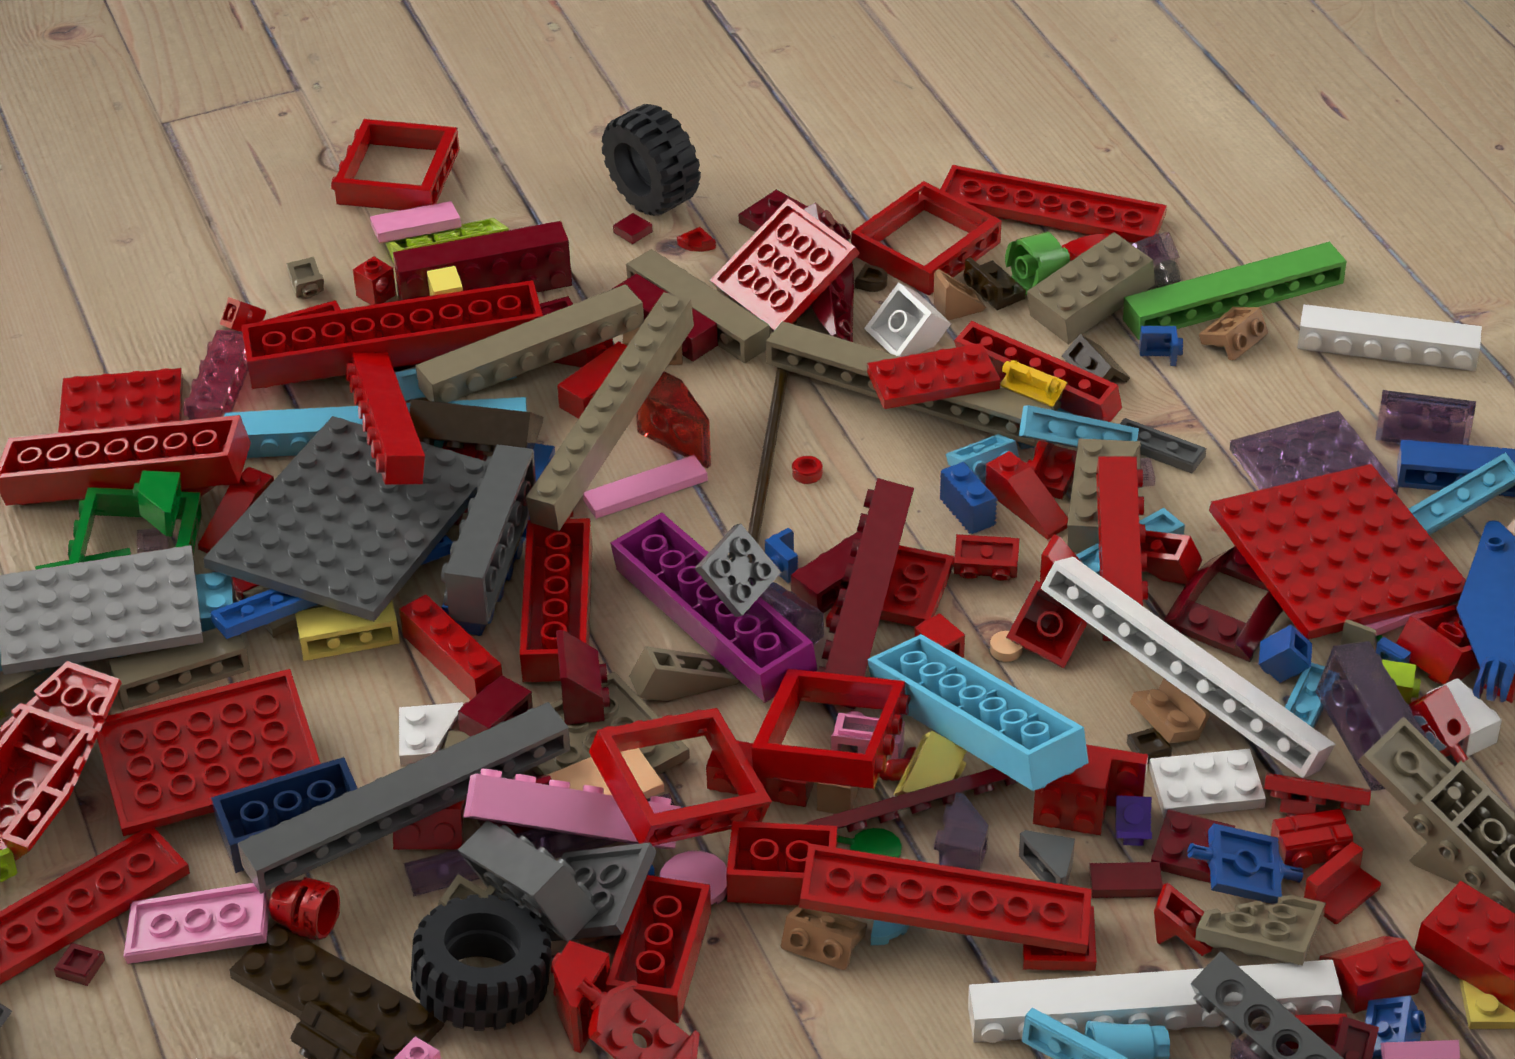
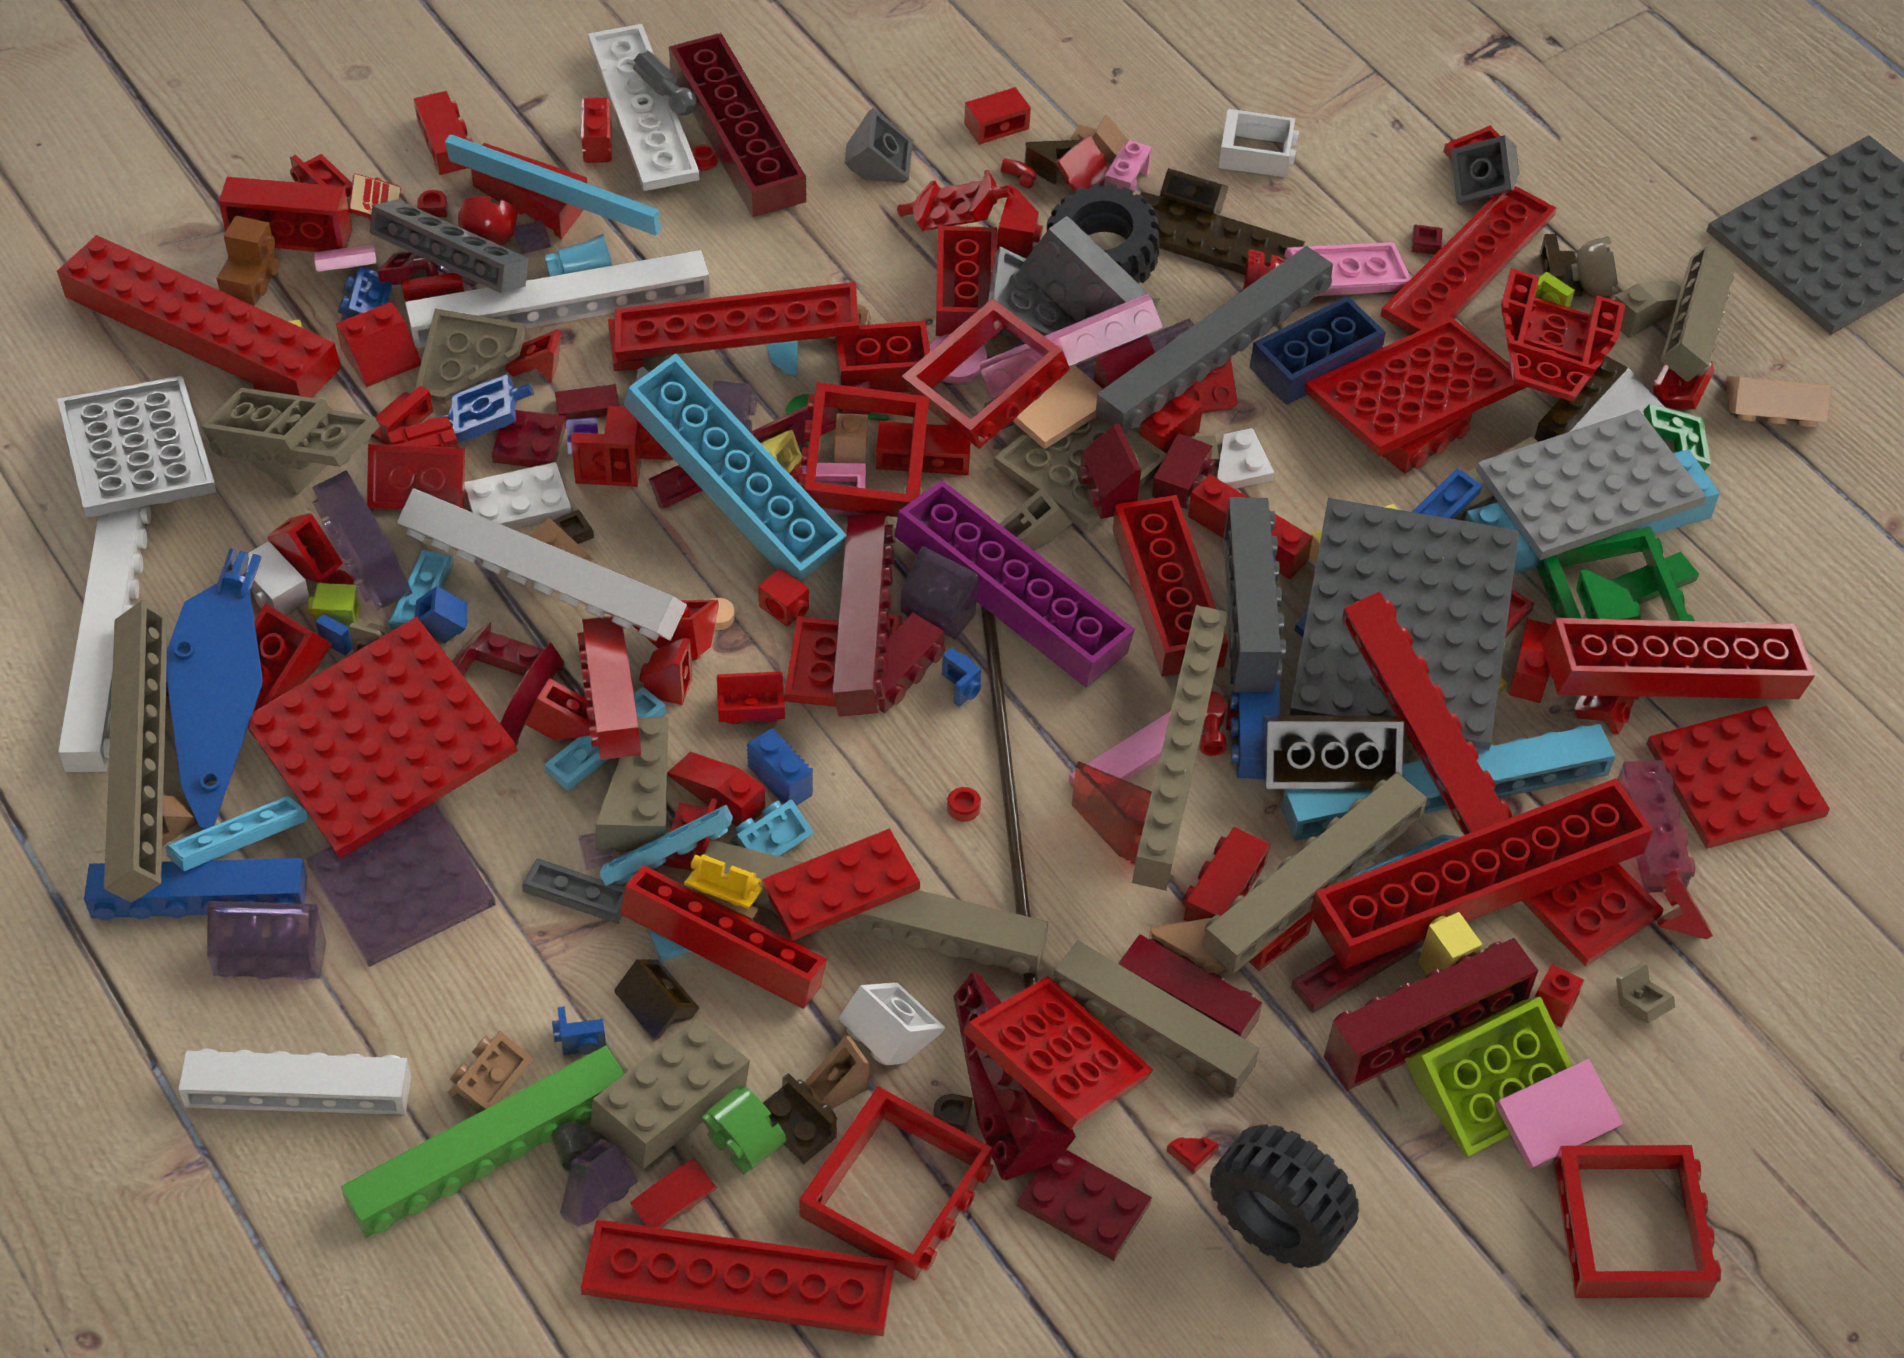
camera: 165 degrees right, 10 degrees up
(730, 576) = (988, 546): dark grey plate -> none

